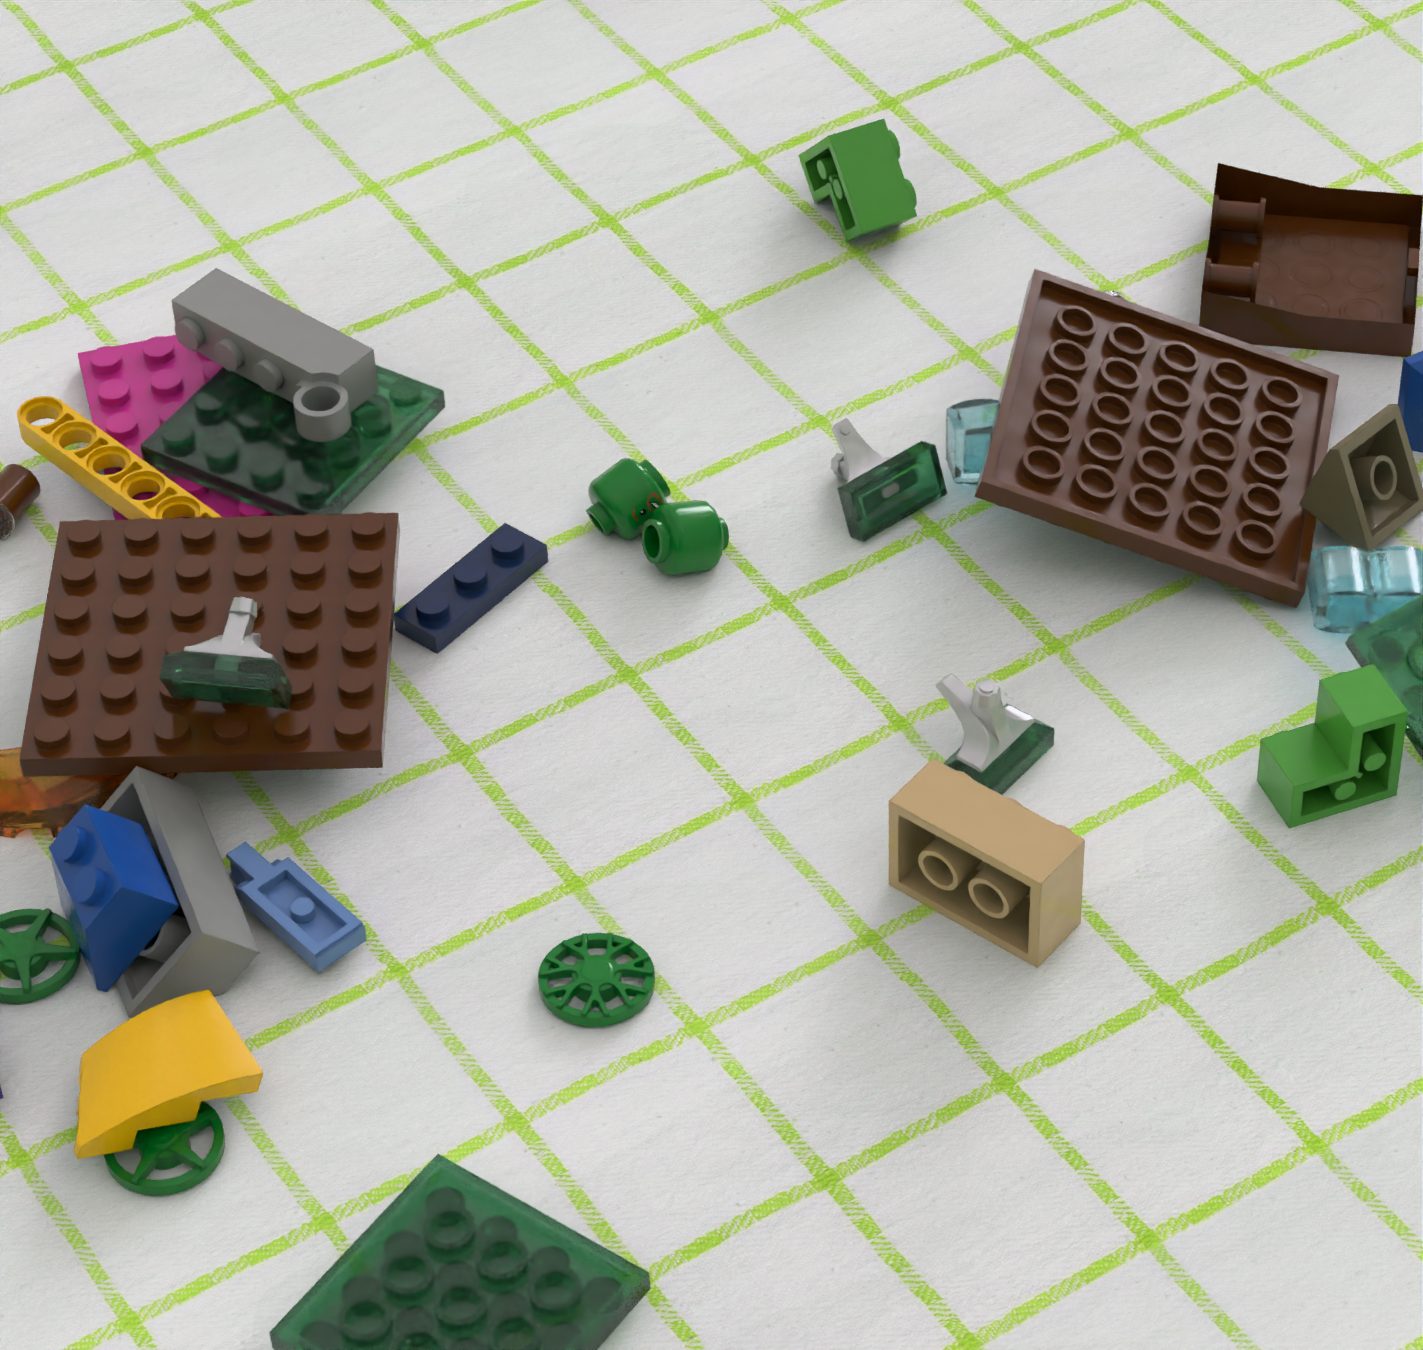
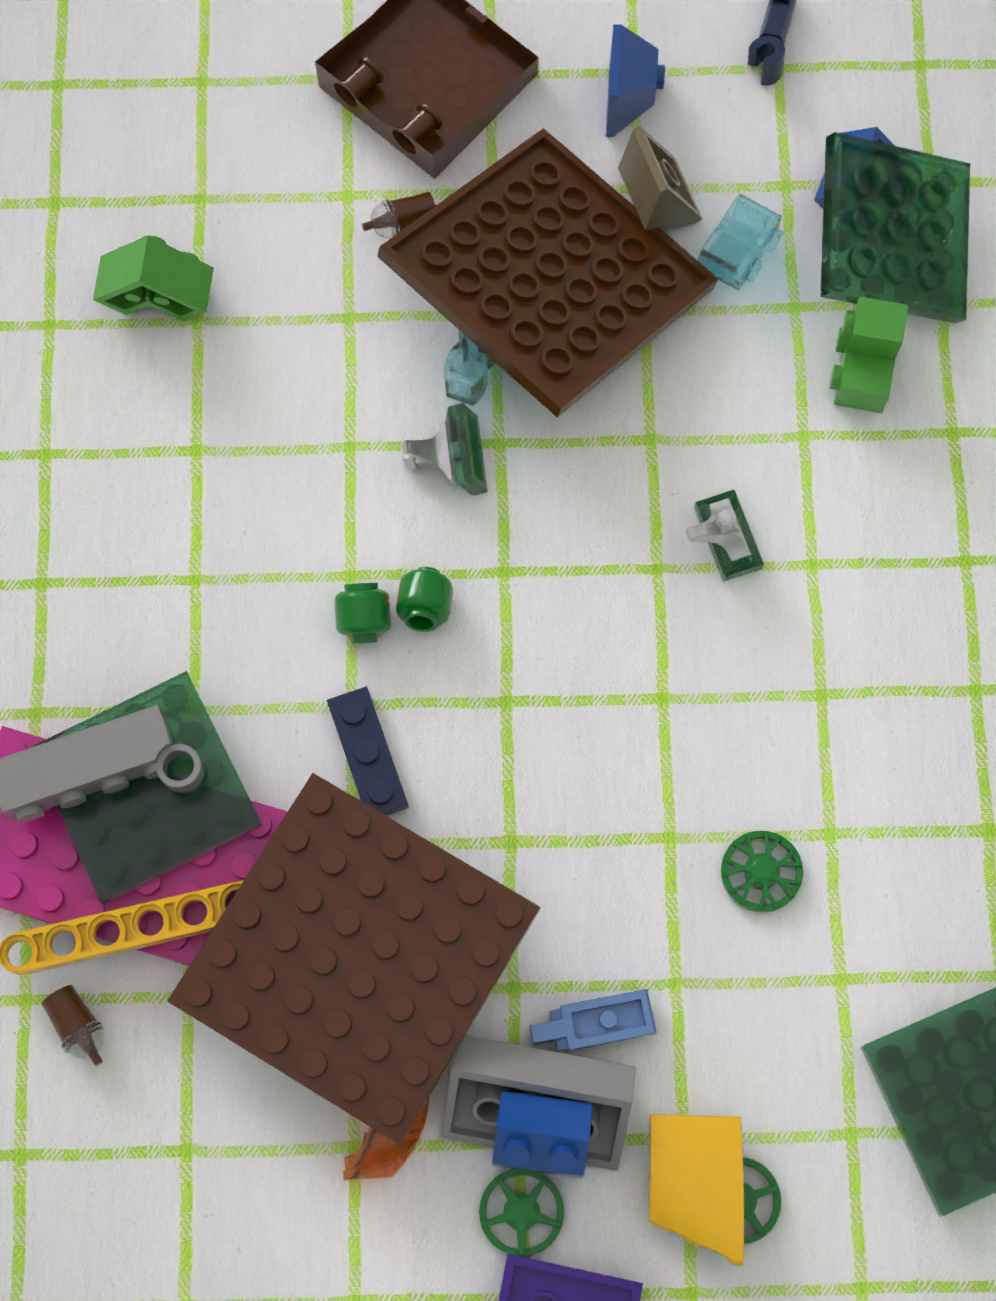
camera: 60 degrees left, 30 degrees up
(229, 666) = (432, 970): clear green piece -> none
(986, 862) = (841, 600): tan brick -> none

